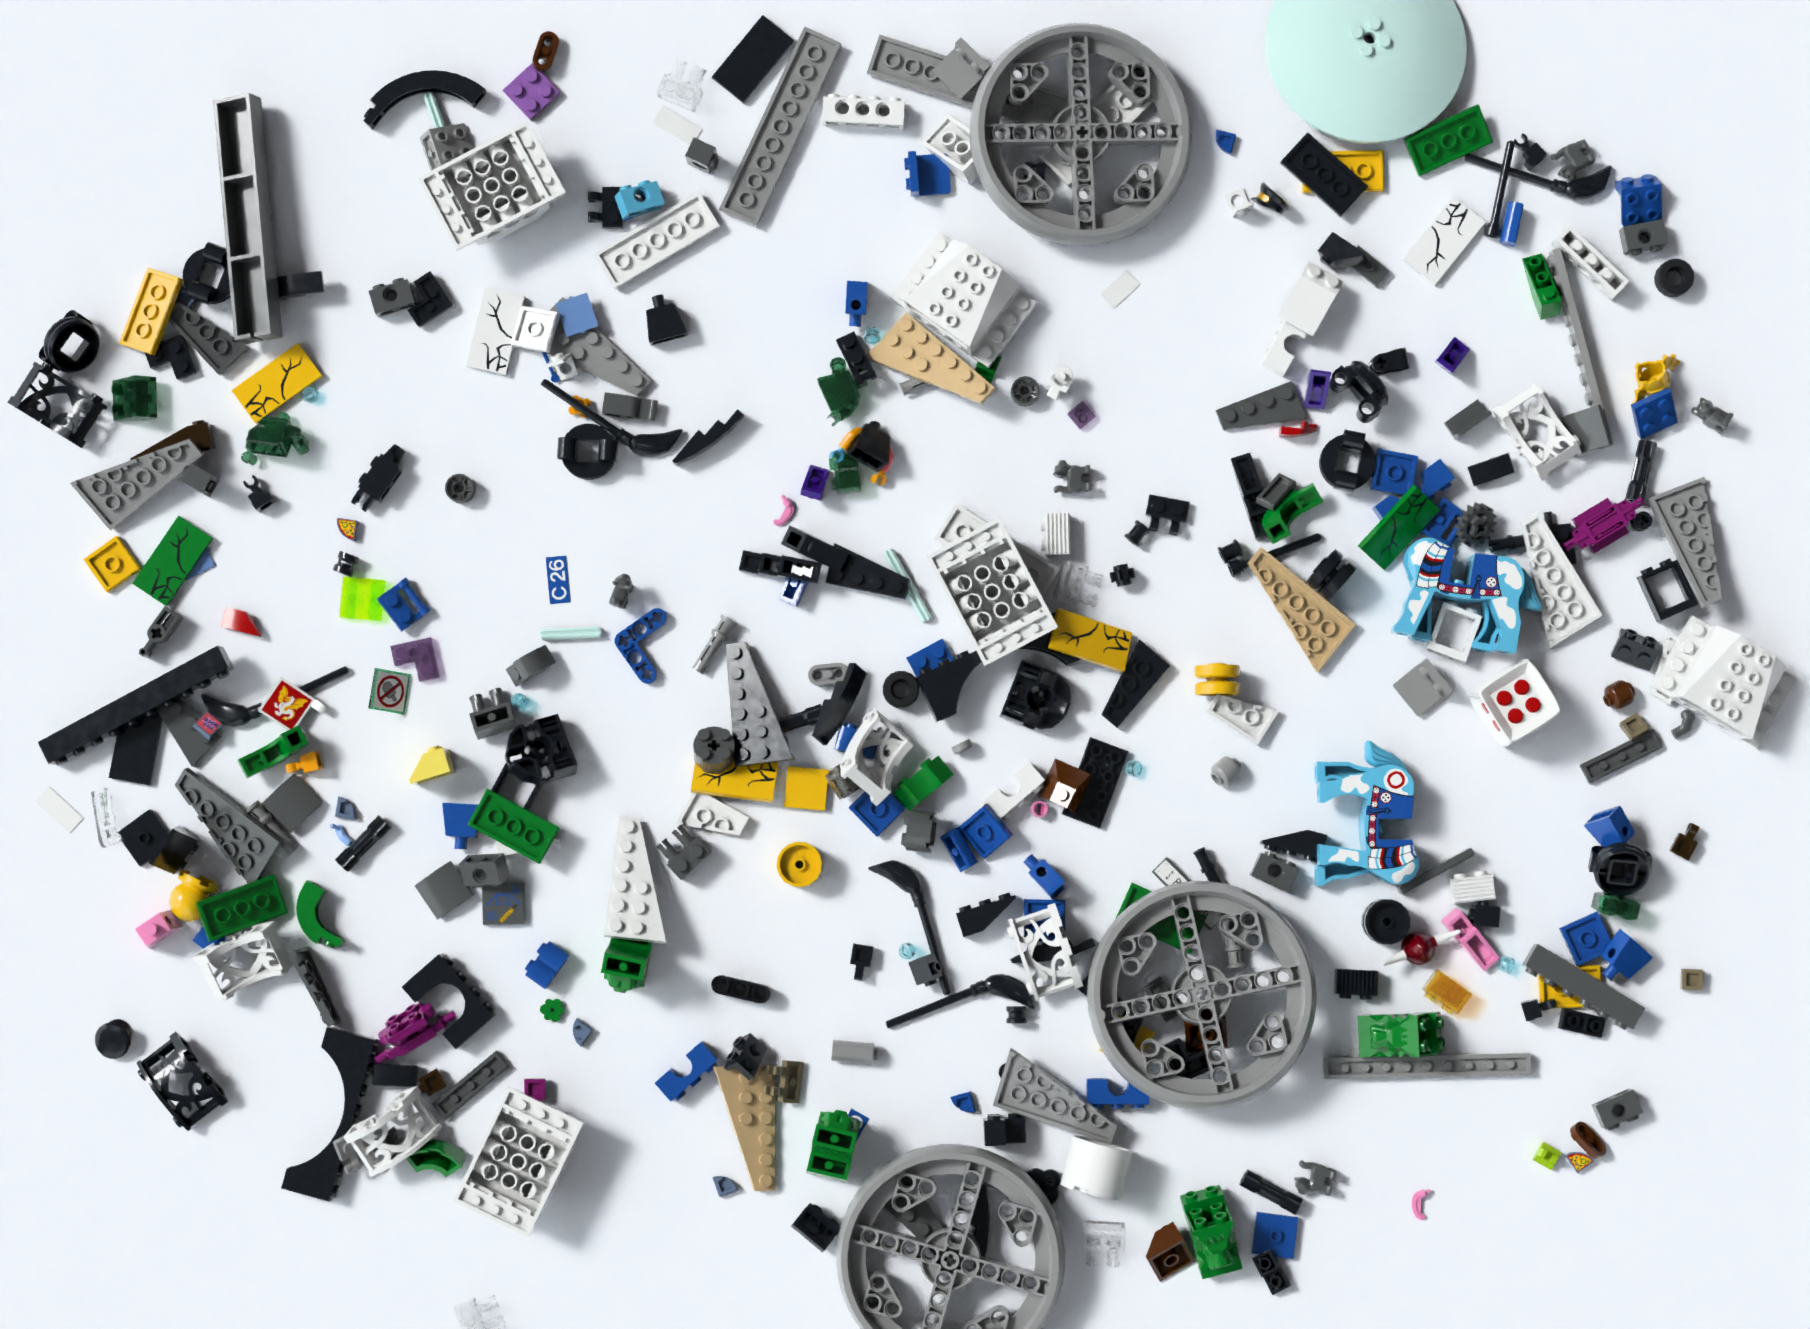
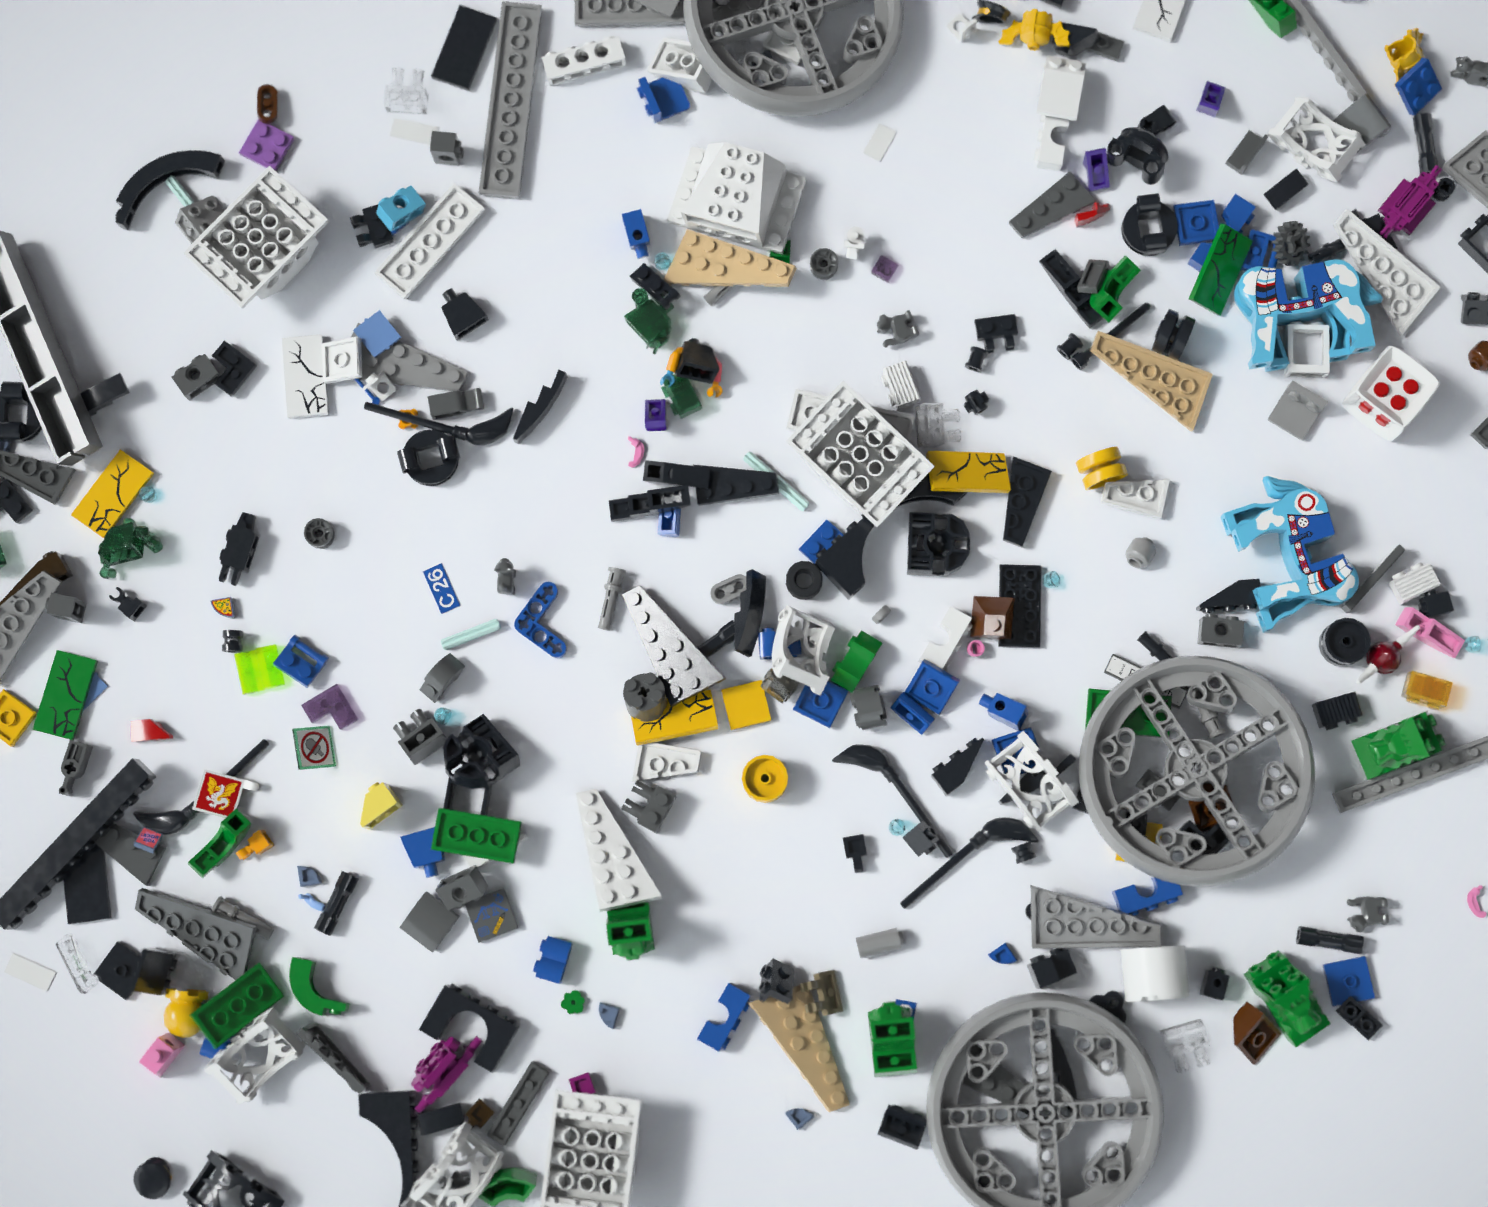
camera: 10 degrees left, 5 degrees down
(292, 803) = (254, 888): dark grey slope -> none
(730, 989) = (739, 916): black beam -> none
(1149, 1195) = (1214, 984): none -> black brick
(1306, 233) = (1035, 31): none -> yellow helmet

